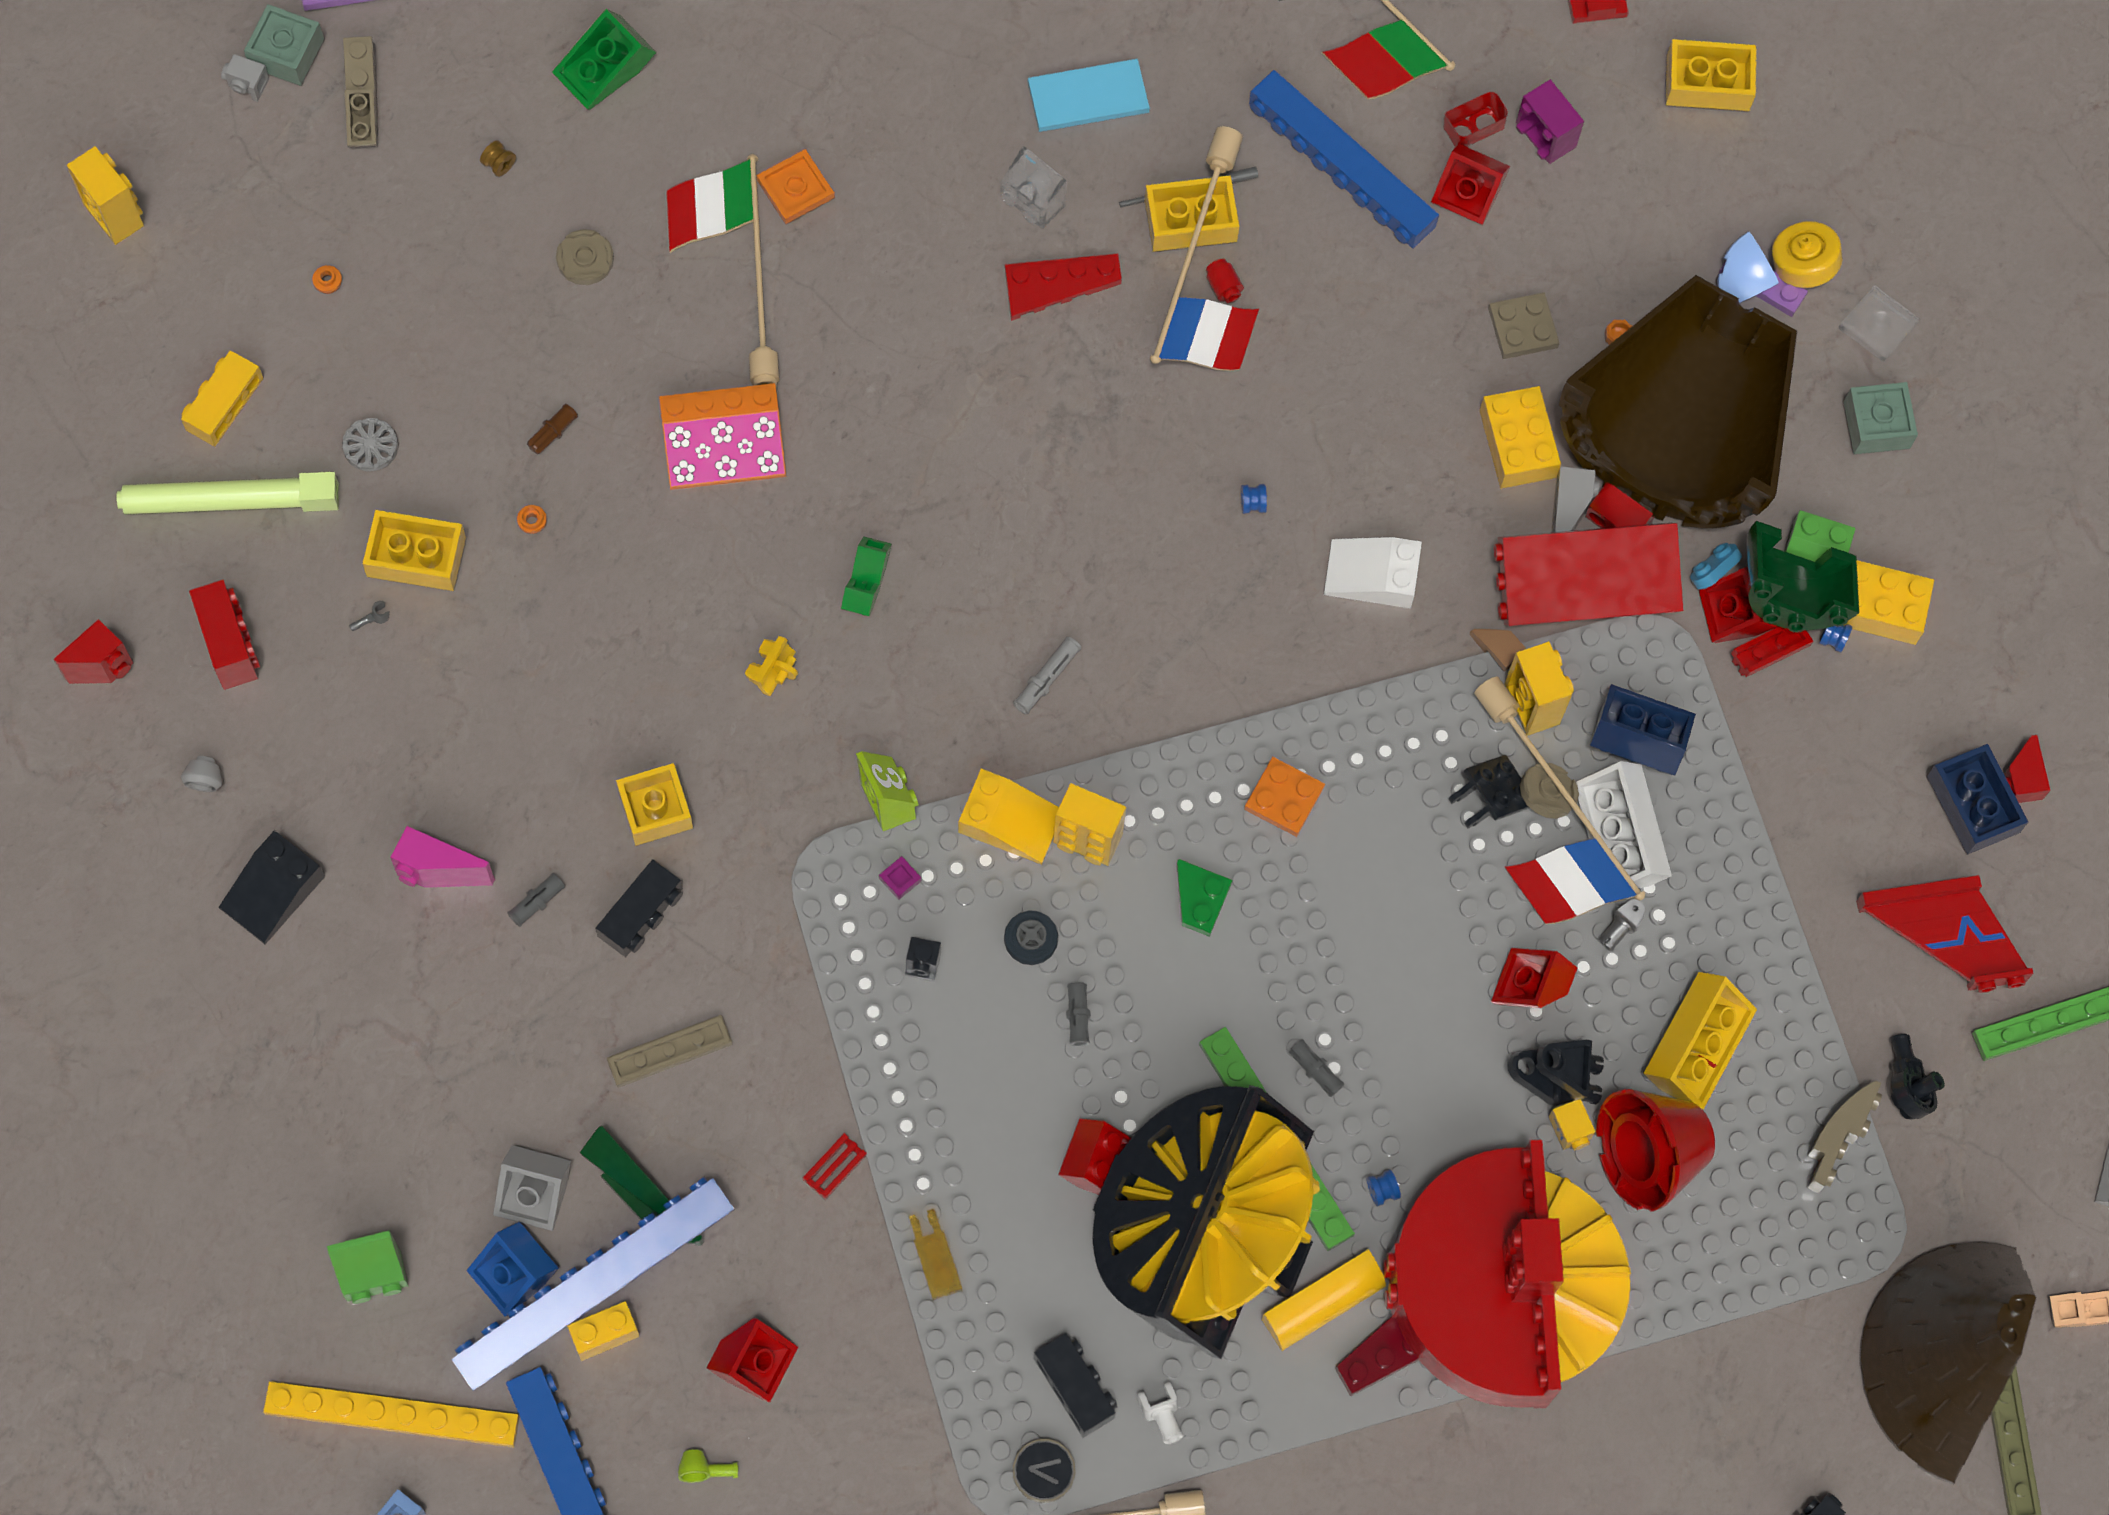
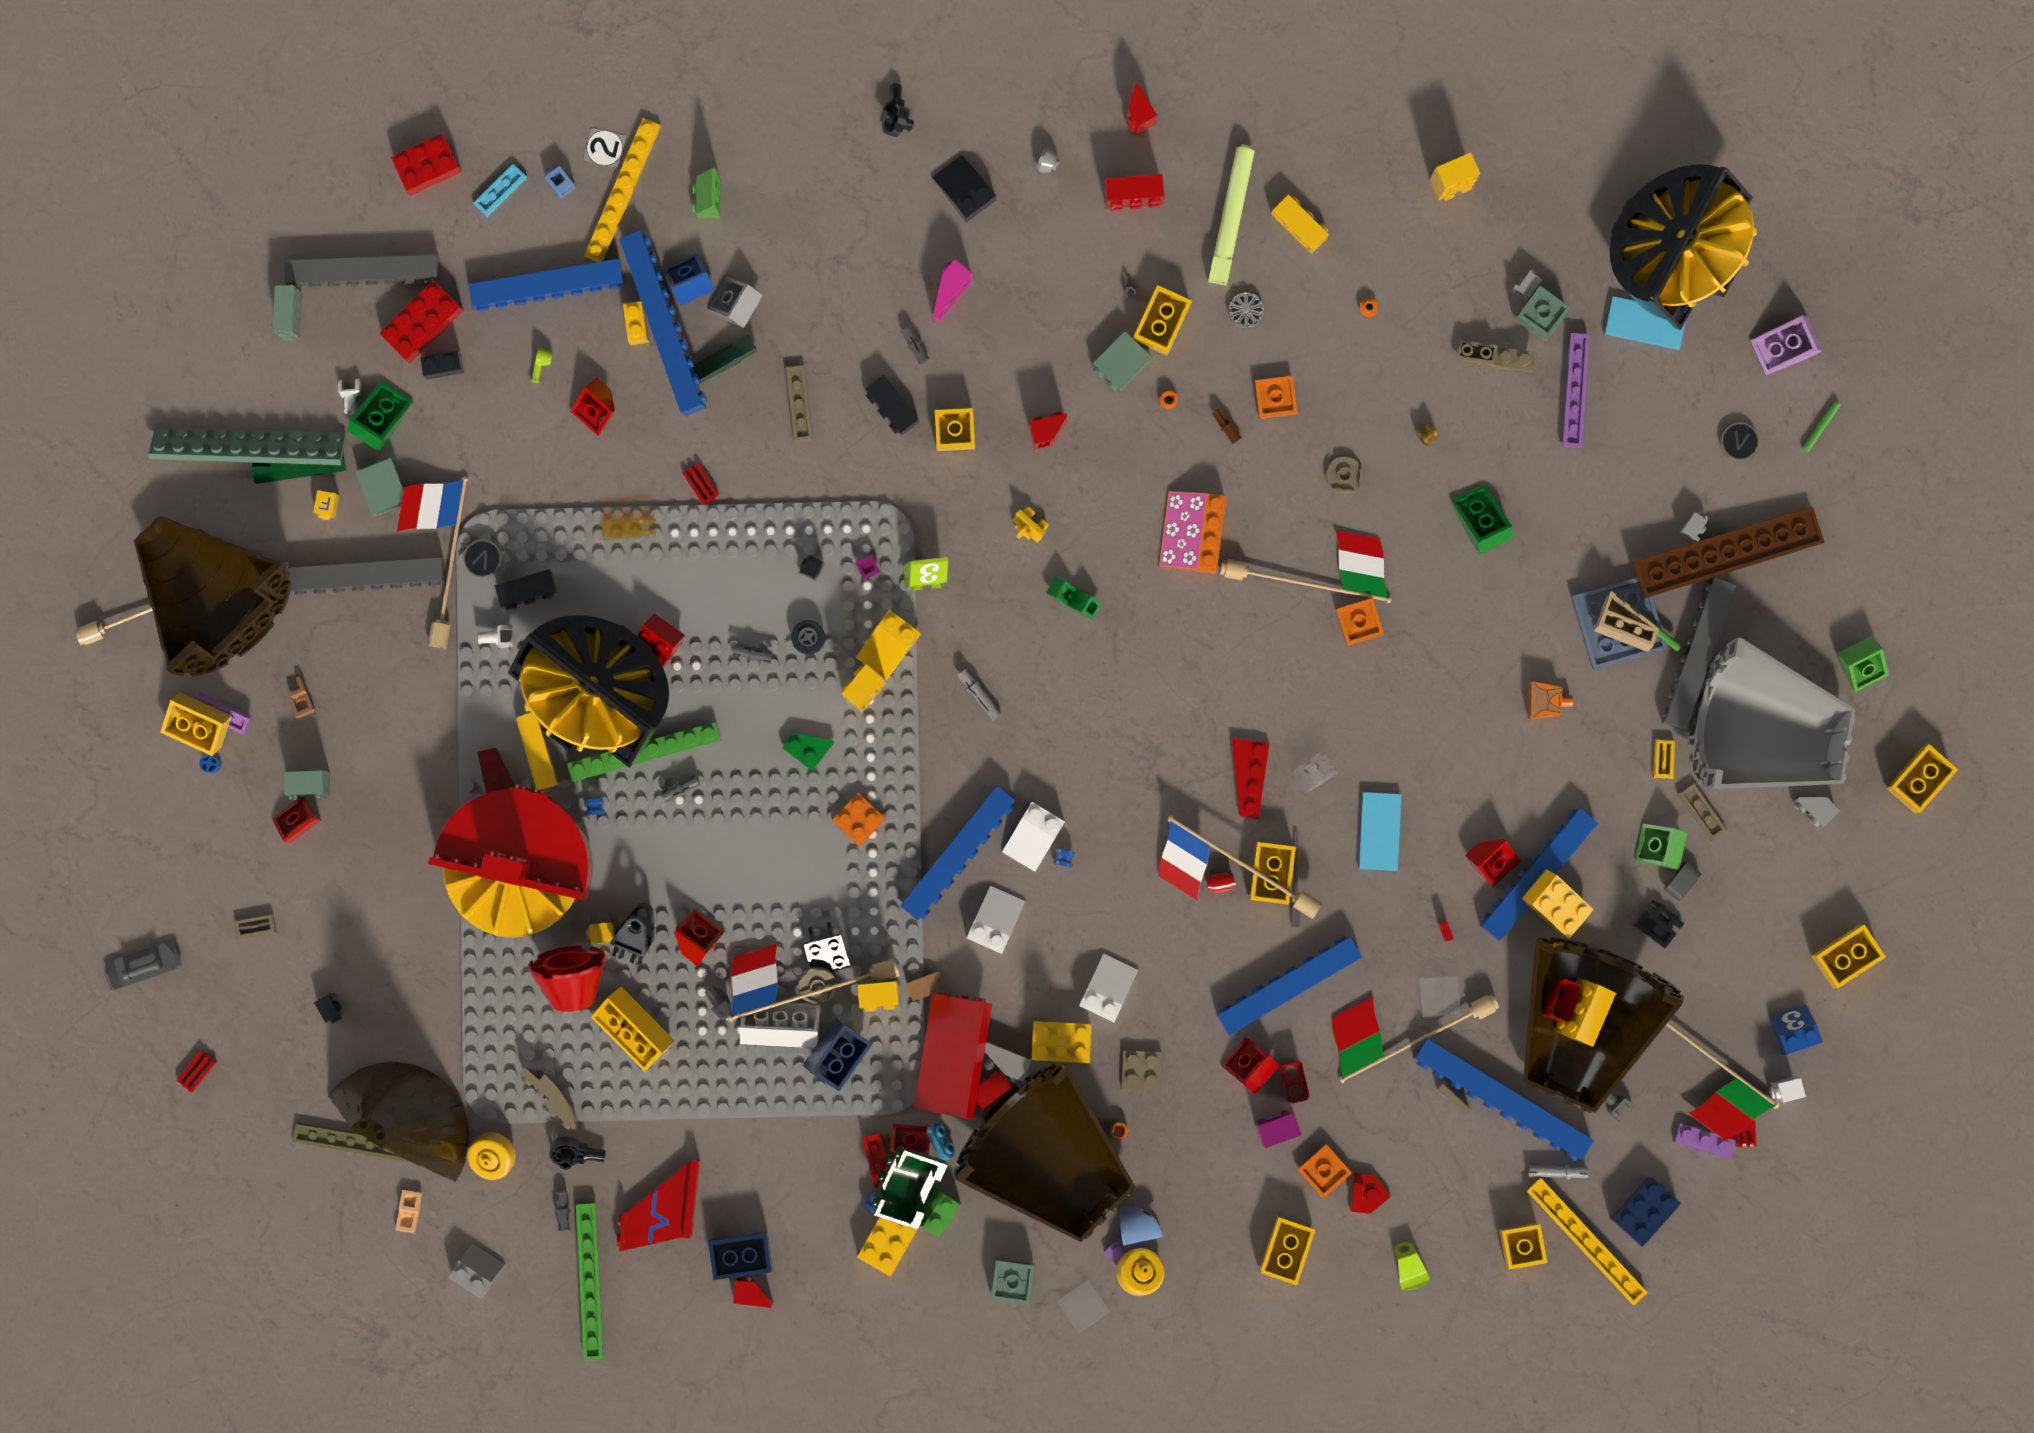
camera: 110 degrees right, 15 degrees up
(180, 1024) = (894, 114): none -> black pin
(325, 1464) = (604, 147): none -> sticker
(491, 595) = (1121, 362): none -> sand green brick
(492, 372) = (1276, 397): none -> orange plate
(623, 670) = (1046, 430): none -> red slope
(1233, 547) = (1033, 836): none -> white slope
(1293, 643) = (956, 854): none -> blue brick
(1423, 394) = (1108, 988): none -> white slope
(1584, 57) = (1324, 1171): none -> orange plate
(1959, 1201) = (491, 1155): none -> yellow wheel
(2002, 1077) = (562, 1211): none -> dark grey pin

